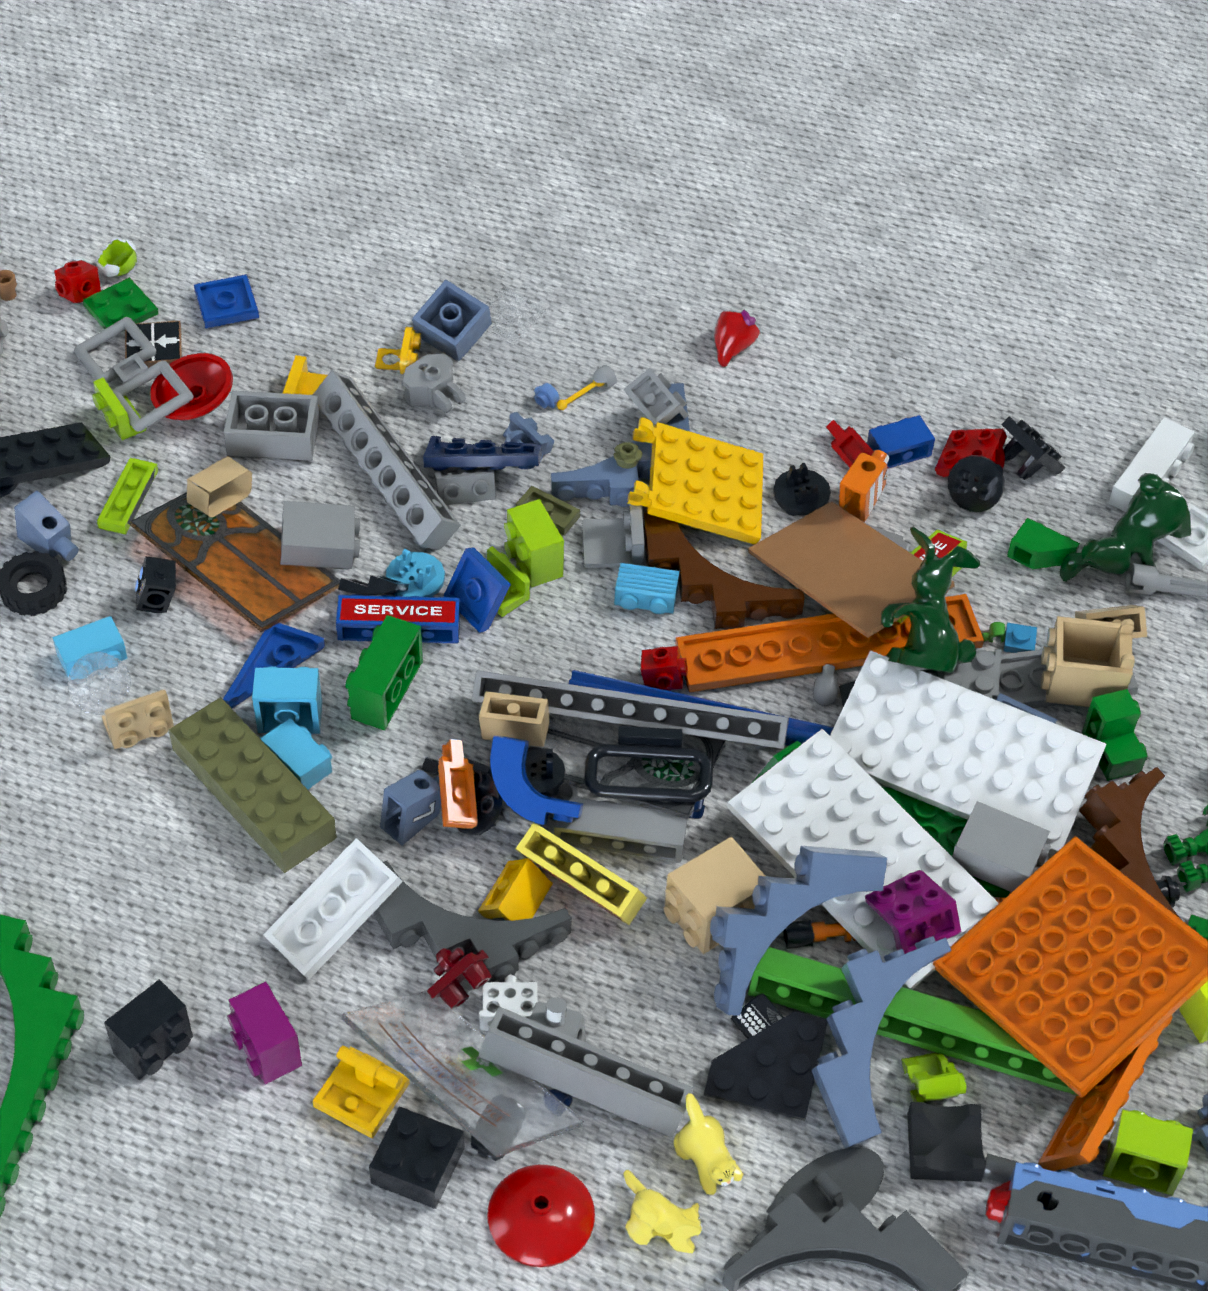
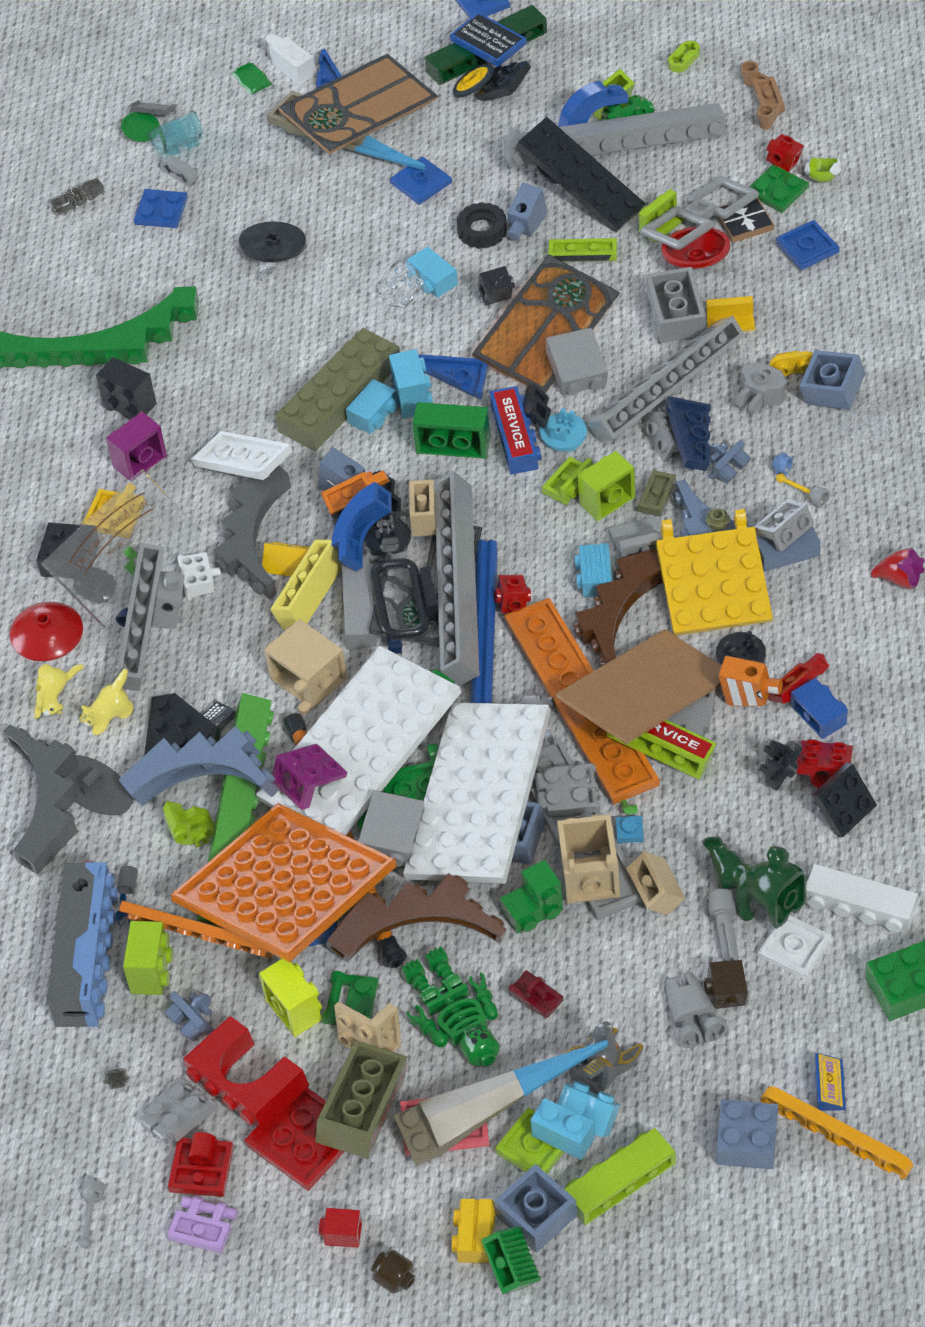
camera: 85 degrees right, 0 degrees up
(138, 719) = (375, 314): tan bracket -> none
(225, 484) = (600, 292): tan piece -> none
(449, 985) = (205, 535): dark red hips -> none
(479, 589) = (550, 465): blue plate -> none
(778, 902) = (307, 697): sand blue arch -> none
(932, 637) = (563, 739): dark green animal -> none
(945, 1142) = (139, 840): black brick -> none
(1040, 546) = (733, 823): green slope -> none

